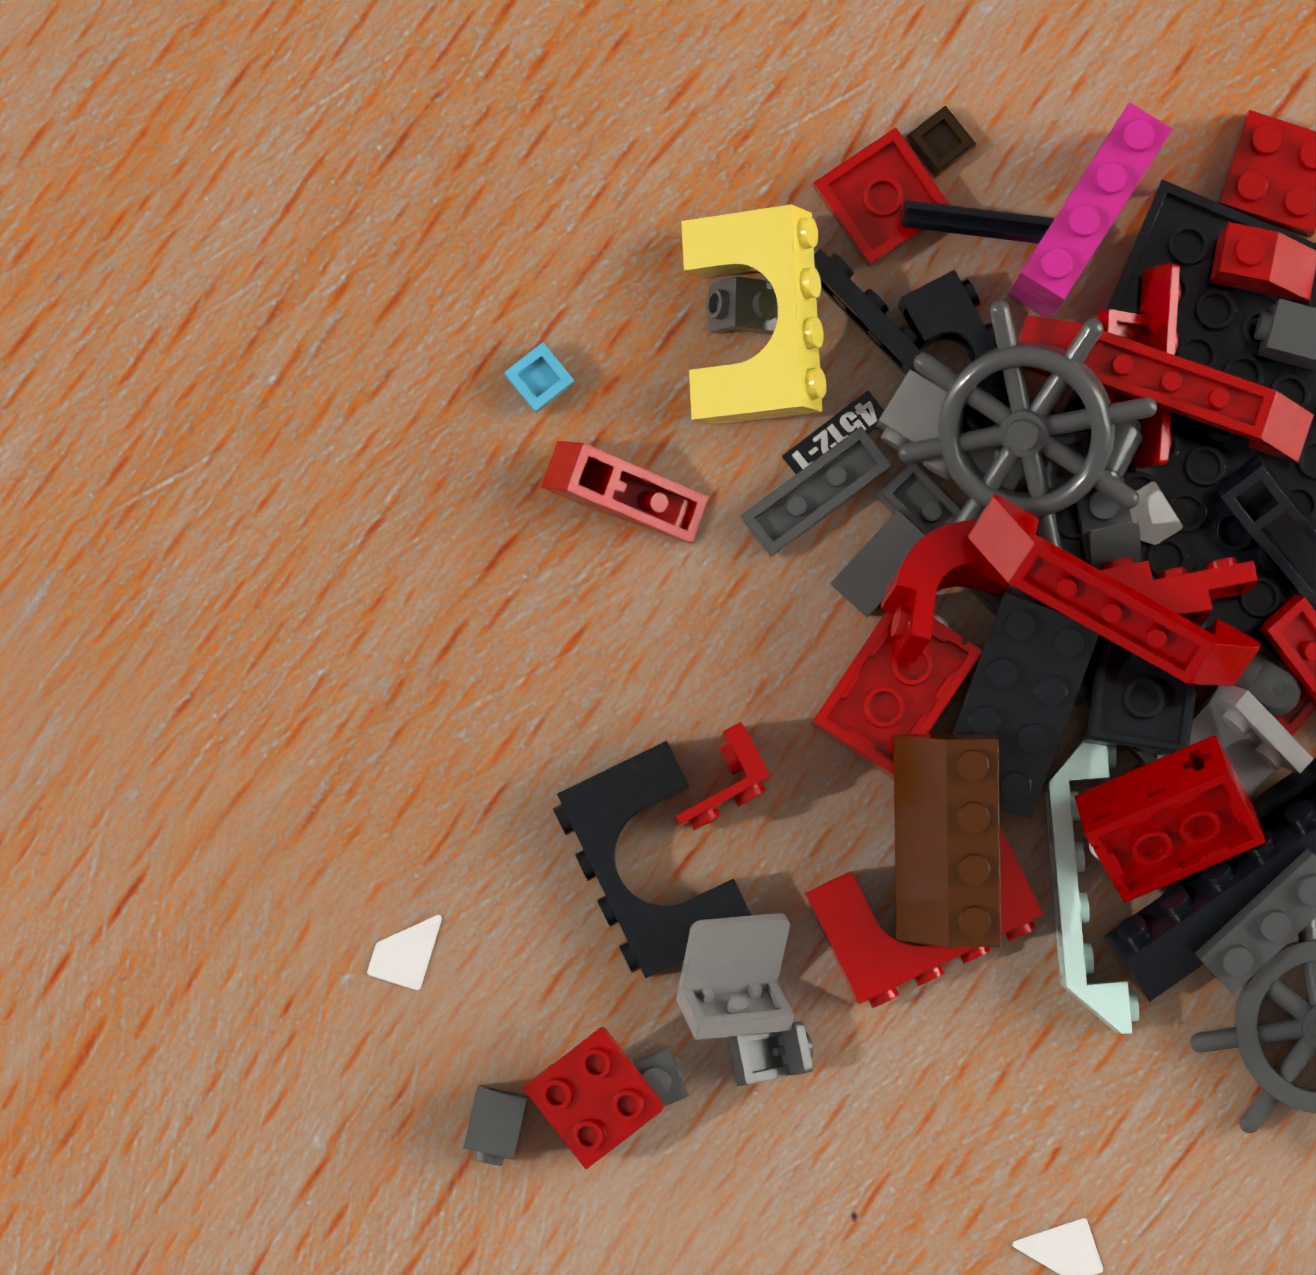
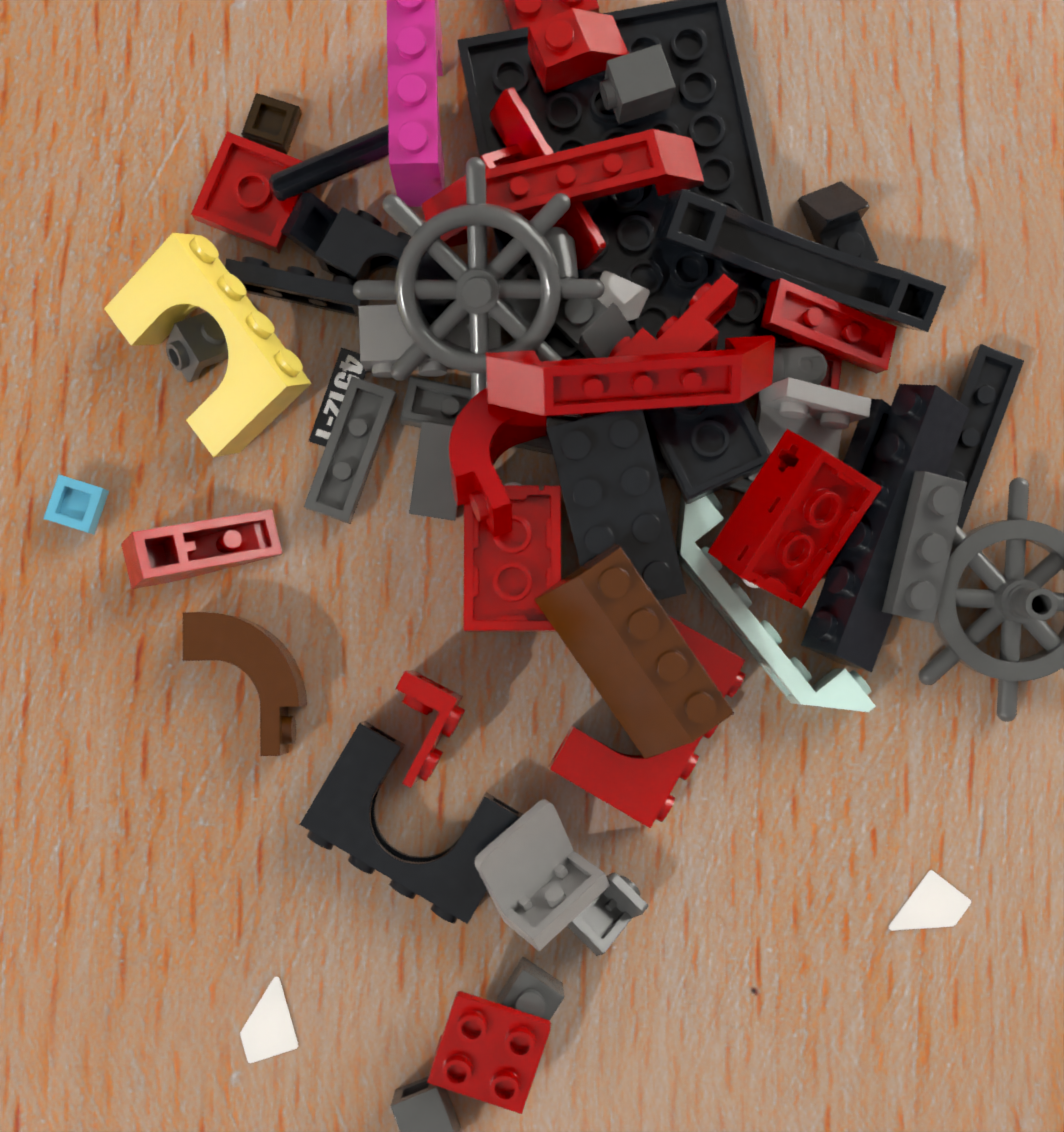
camera: 40 degrees left, 0 degrees up
(607, 601) = (262, 658): none -> reddish brown arch
(916, 262) = (309, 222): none -> black plate

